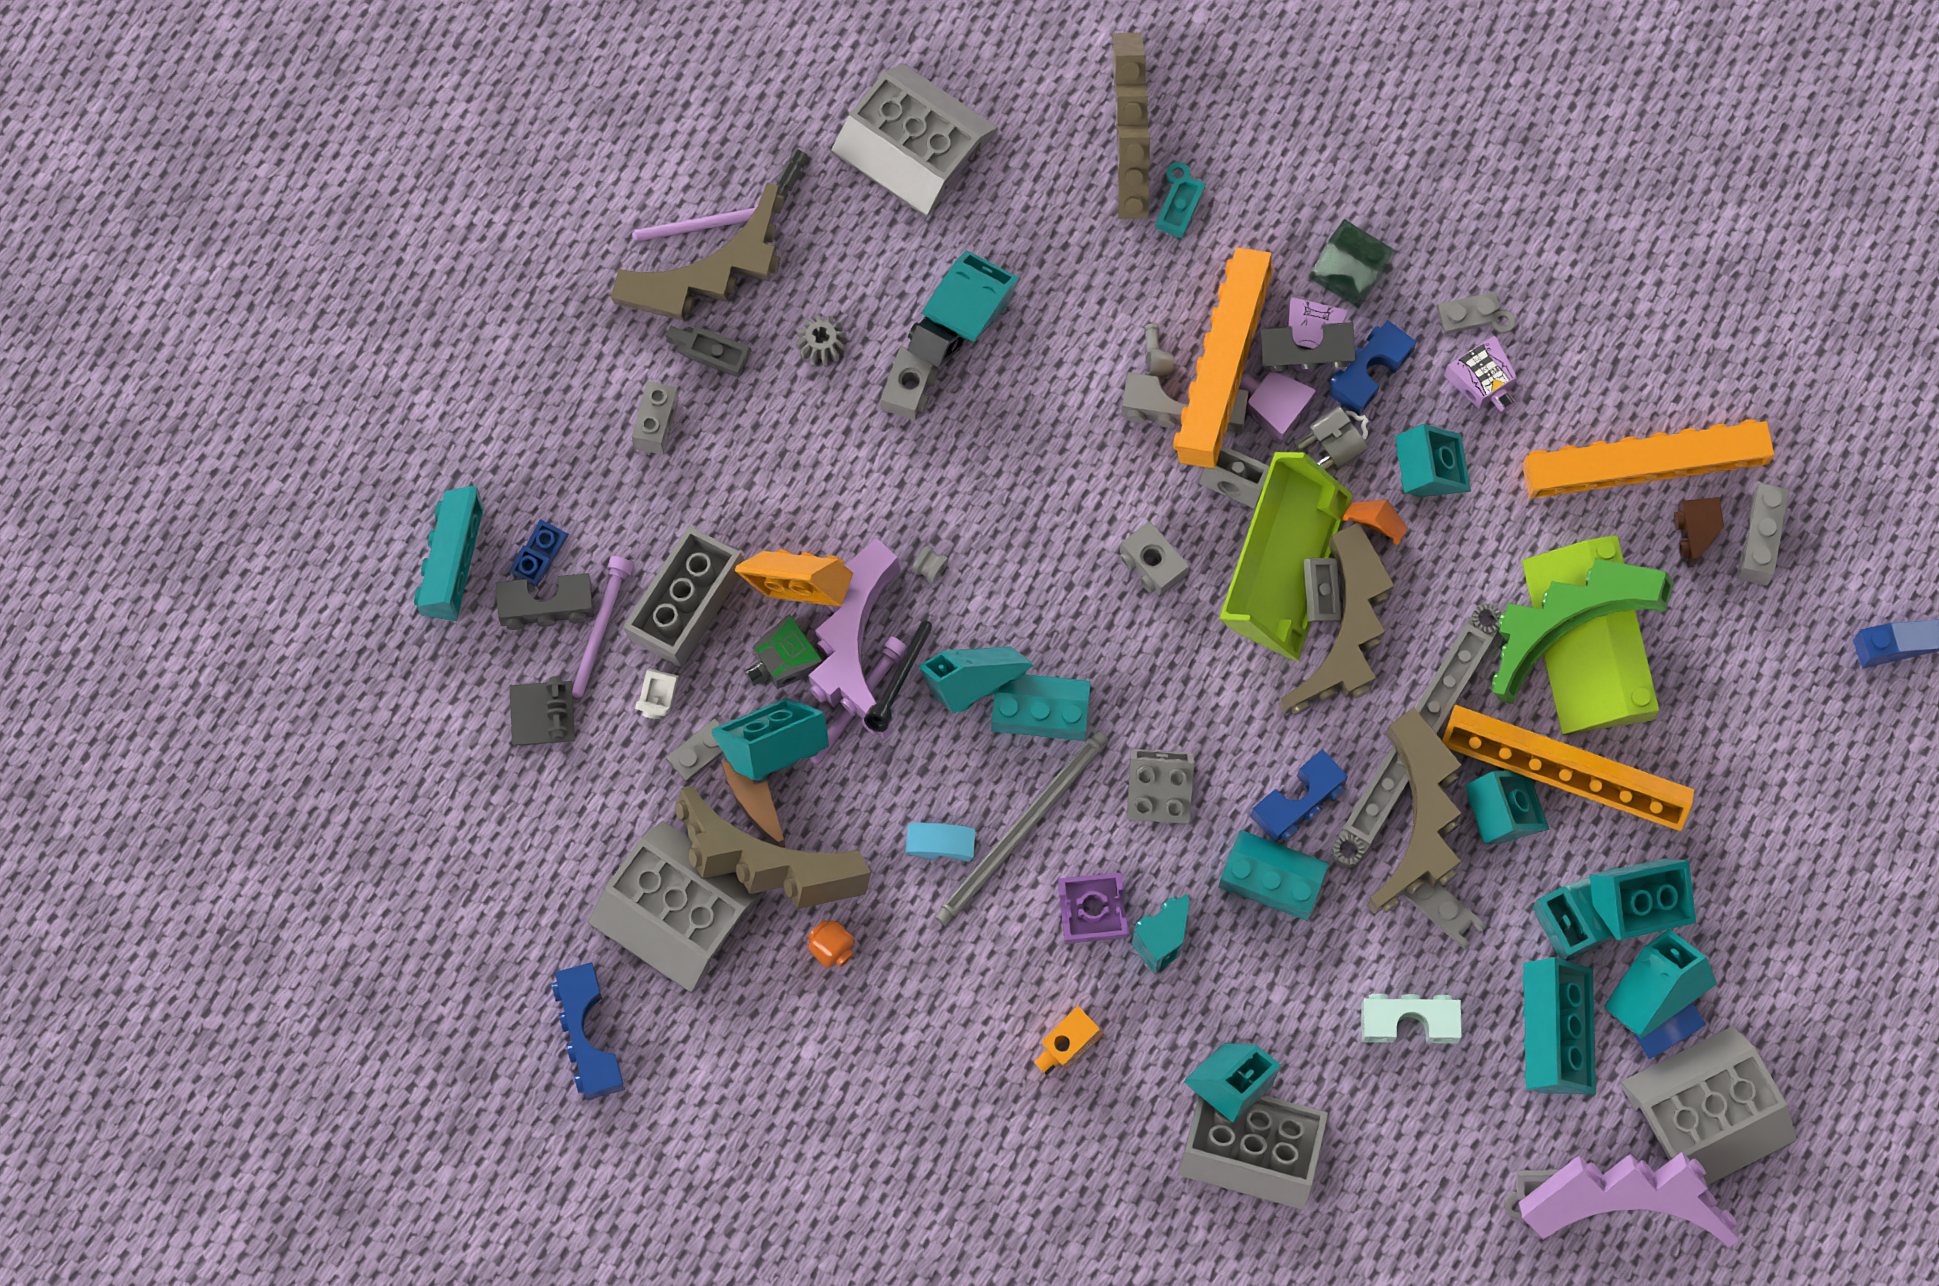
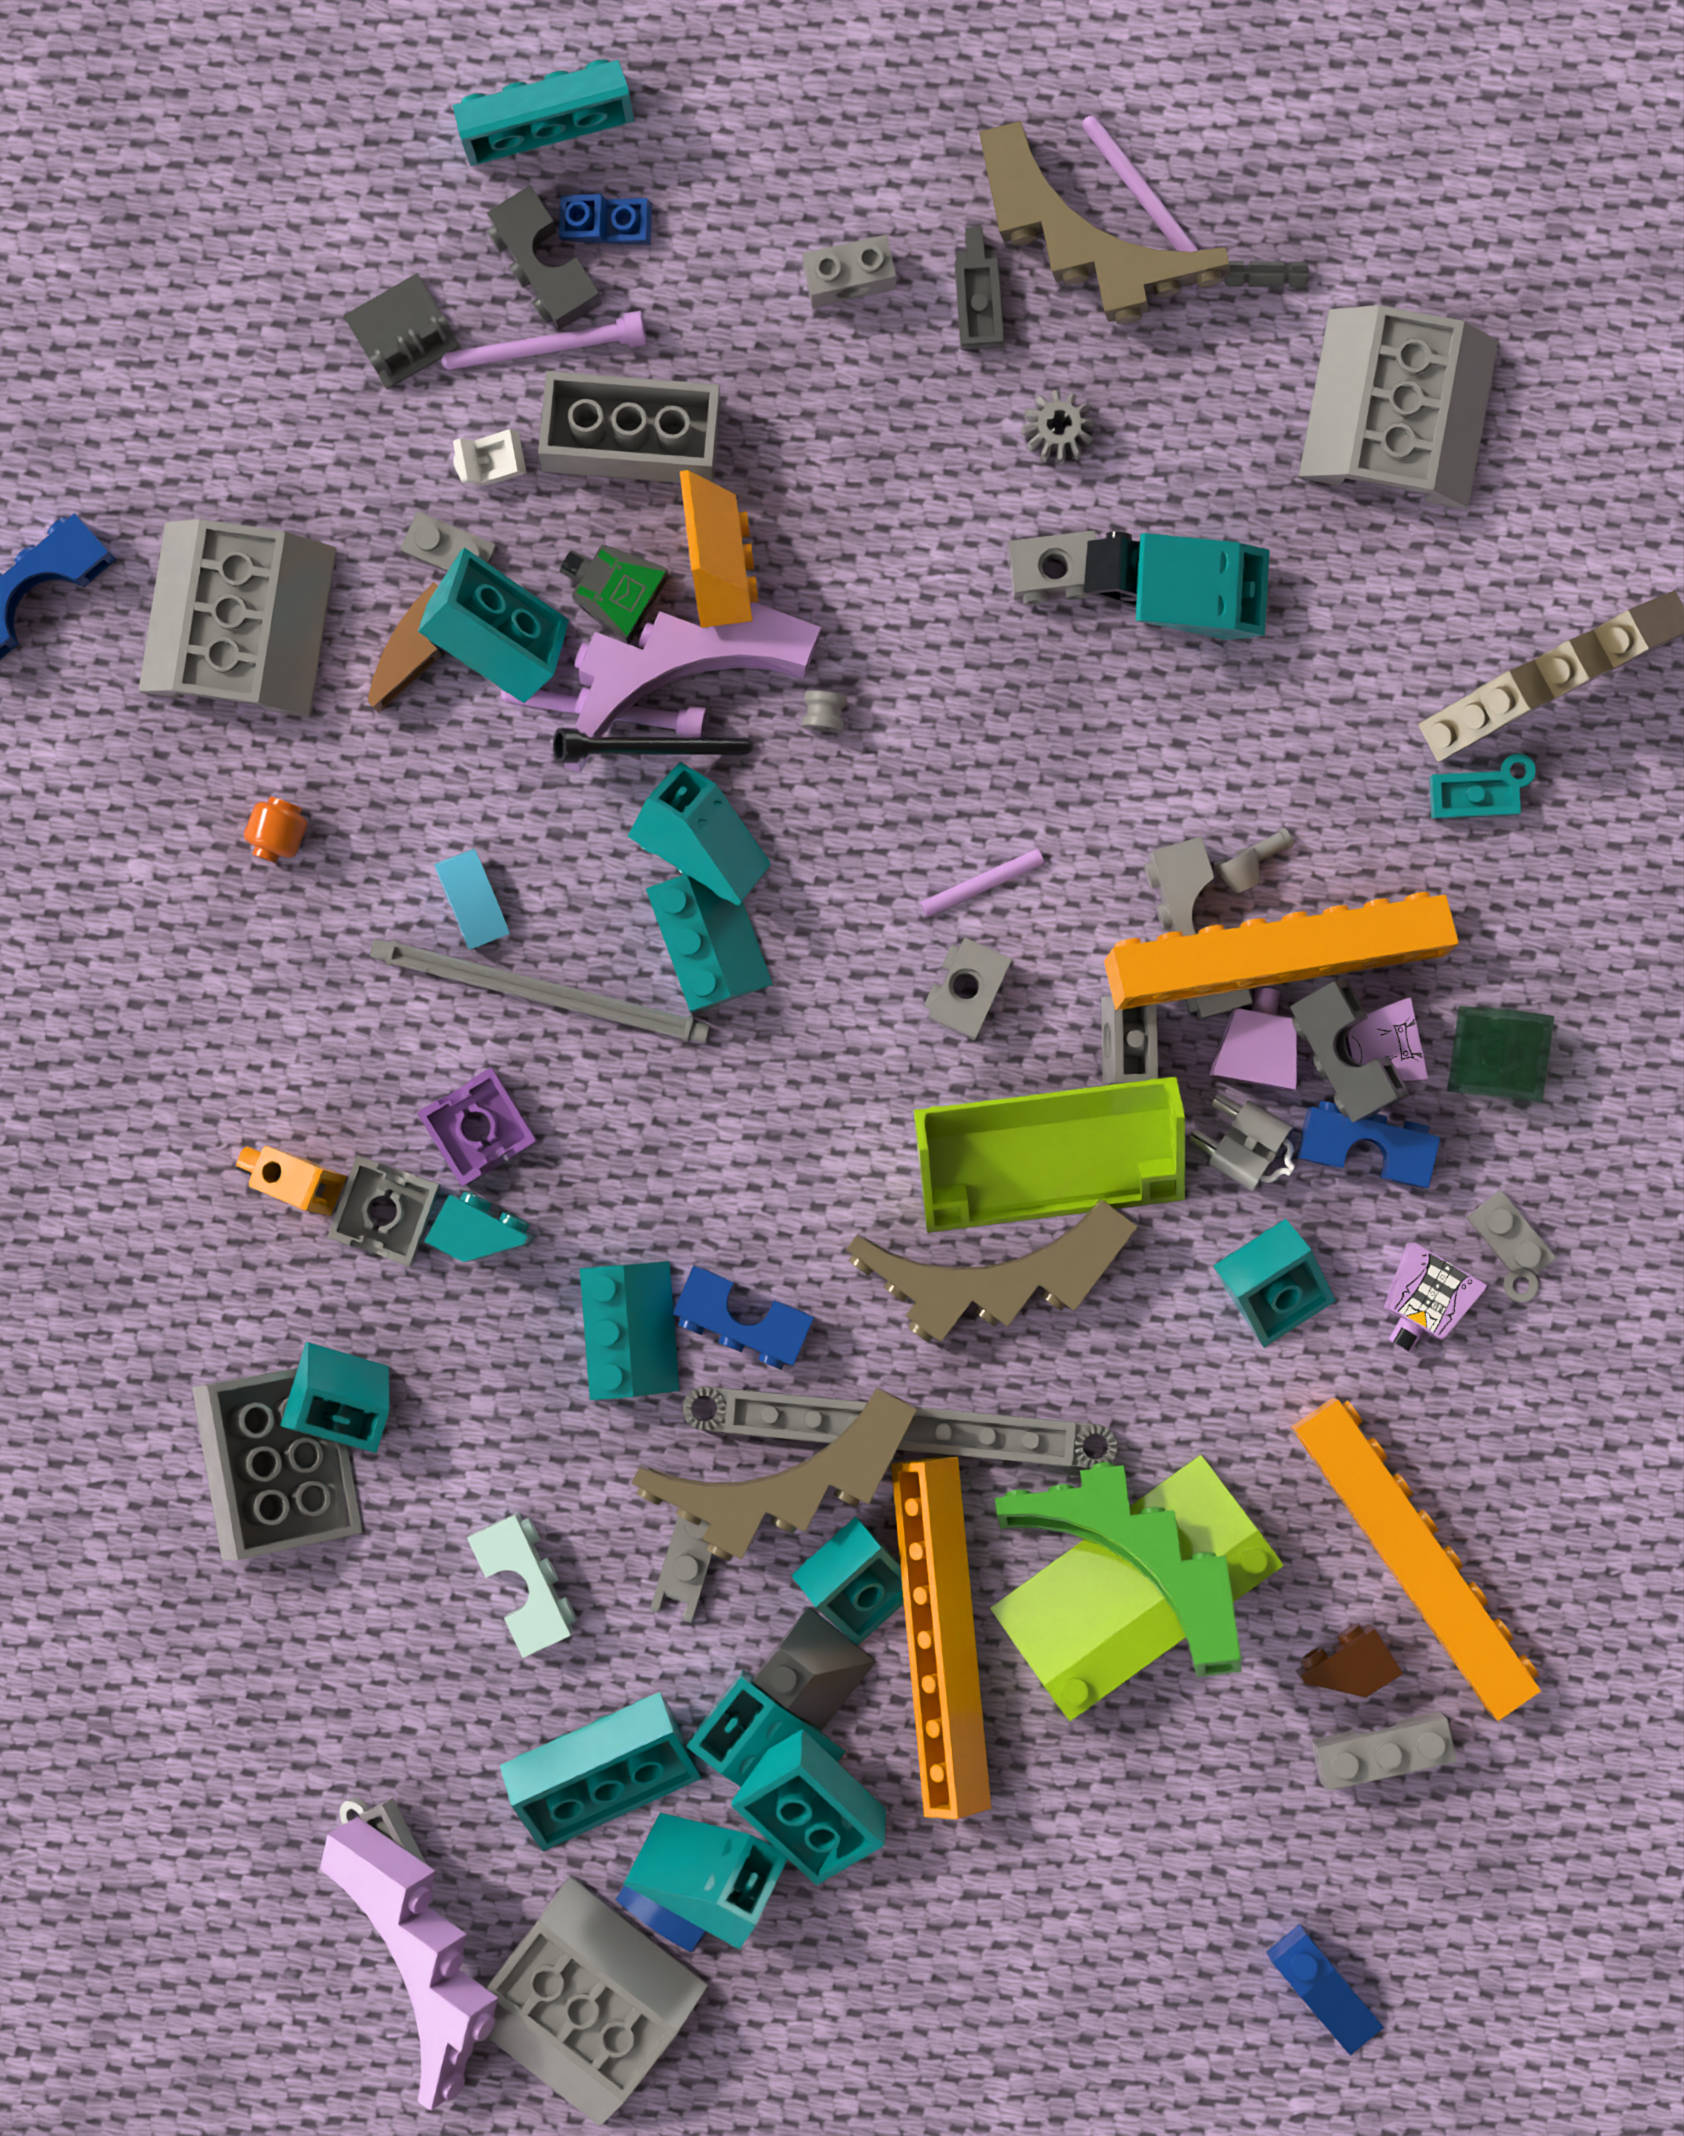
camera: 65 degrees right, 15 degrees up
(762, 866) = (320, 694): dark tan arch -> none
(1088, 522) = (982, 882): none -> lavender bar
(1115, 1015) = (414, 1204): none -> light grey brick
(1160, 786) = (677, 1134): light grey bracket -> none
(1322, 589) = (1030, 1220): light grey plate -> none
(1378, 516) = (1162, 1246): orange slope -> none
(1551, 860) = (813, 1670): none -> dark grey slope

